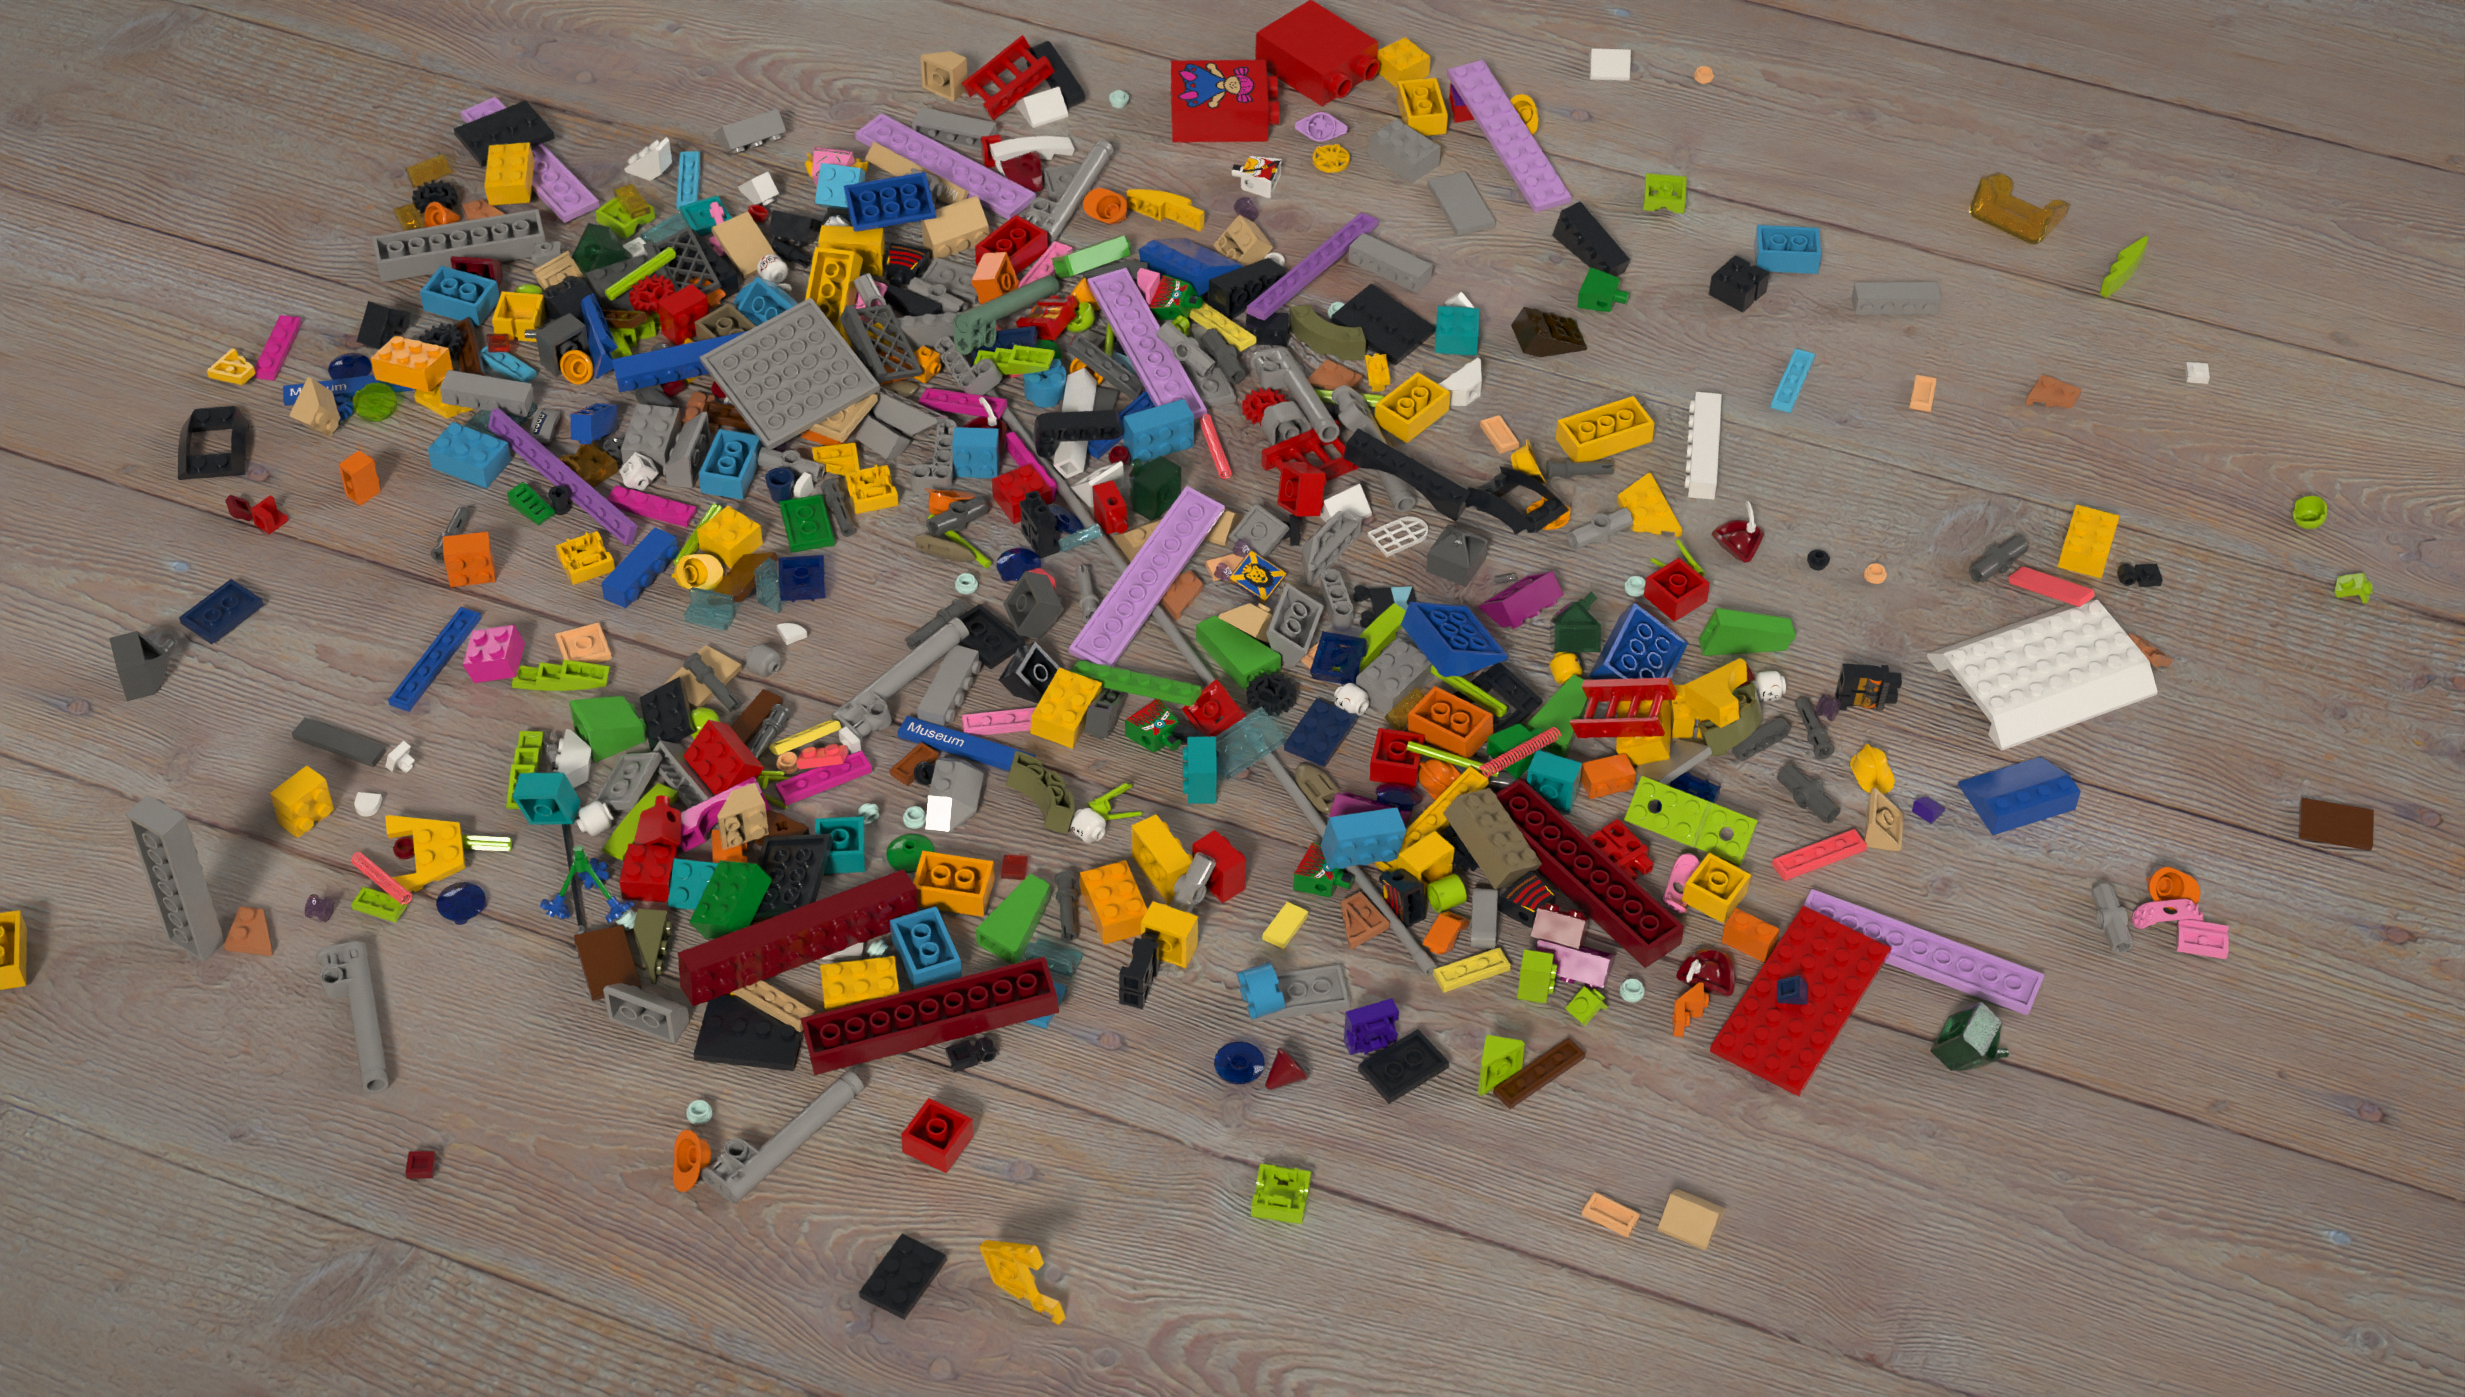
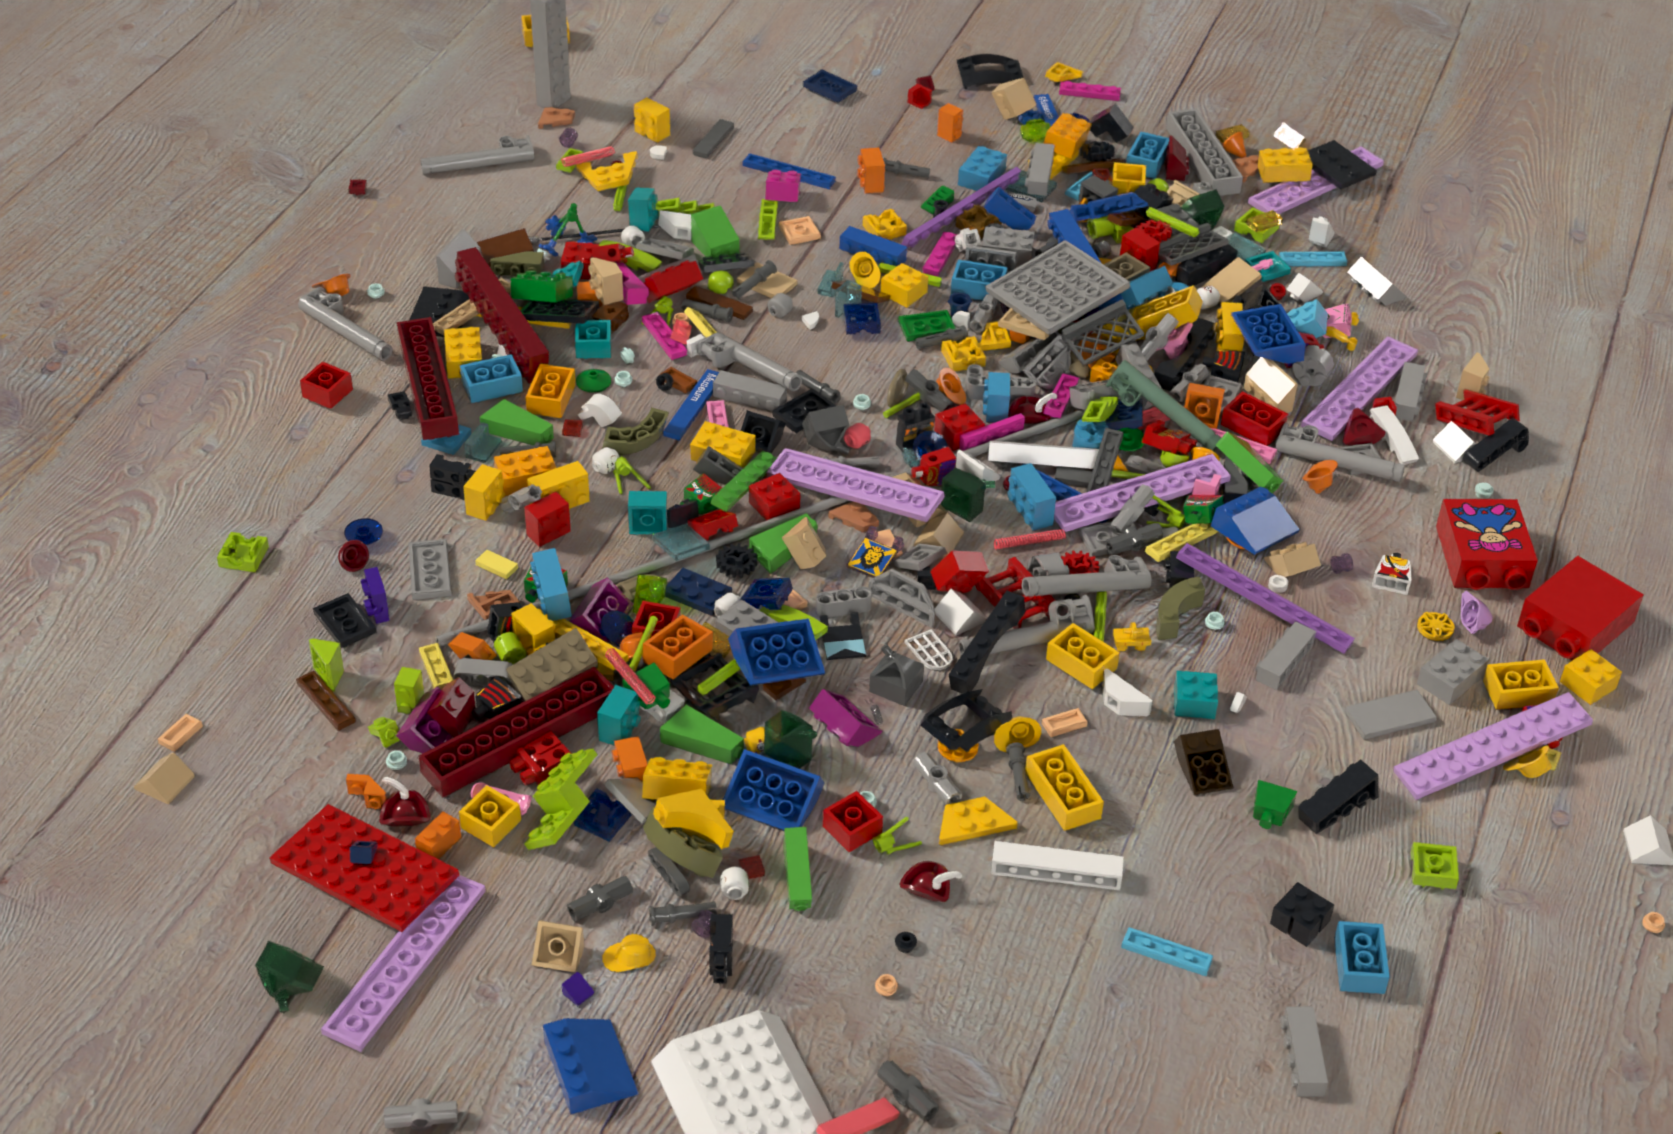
camera: 90 degrees right, 5 degrees down
(140, 663) = (773, 52): dark grey piece -> none
(400, 758) = (694, 159): white tile -> none
(434, 193) = (1259, 141): black gear -> none
(461, 902) = (569, 192): clear blue dish -> none
(899, 165) = (1342, 372): tan tile -> none
(902, 1276) = (223, 379): black plate -> none
(952, 795) = (647, 392): light grey wedge -> none
(991, 829) = (601, 408): none -> white brick
(1010, 1271) = (198, 414): yellow wing -> none
(1015, 562) = (883, 430): clear blue dish -> none
(1074, 426) = (1016, 433): black beam -> none
(1159, 656) = (774, 496): none -> red brick
(1164, 204) = (1333, 514): yellow slope -> none
(1237, 289) = (1225, 547): black wedge -> none
(1260, 990) = (417, 533): dark azure brick -> none
(1293, 624) = (804, 564): light grey slope -> none
(1332, 375) = (1126, 612): nougat wing -> none
(1341, 767) = (649, 589): none -> clear neon green slope
(1385, 323) = (1200, 645): black plate -> none
(1623, 690) = (690, 764): red fence -> none
(1819, 854) = (528, 898): coral tile -> none
(1923, 393) = (1161, 1062): light nougat tile -> none

